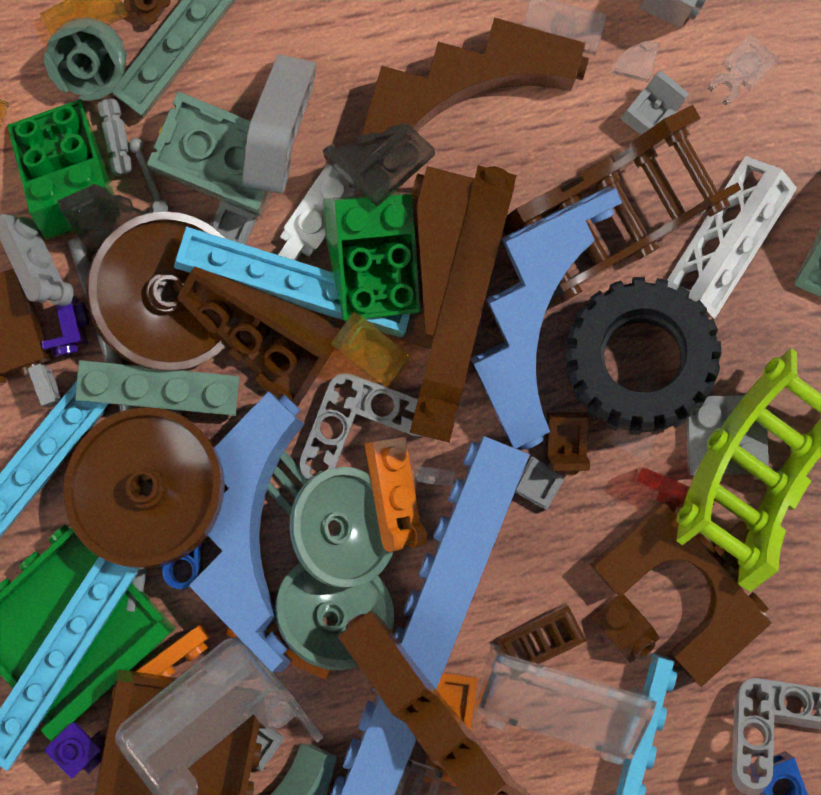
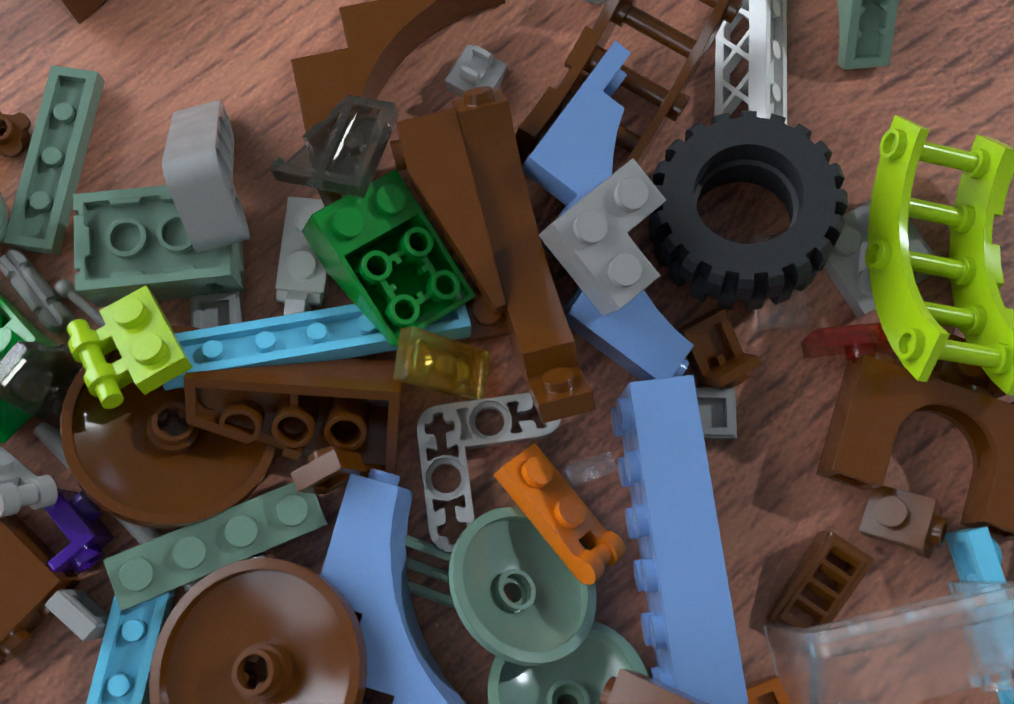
camera: 25 degrees left, 10 degrees down
(177, 226) = (145, 343): none -> lime plate
(254, 380) = (327, 470): none -> reddish brown plate
(515, 141) = (475, 69): none -> light grey tile
(515, 324) = (594, 238): none -> light grey brick

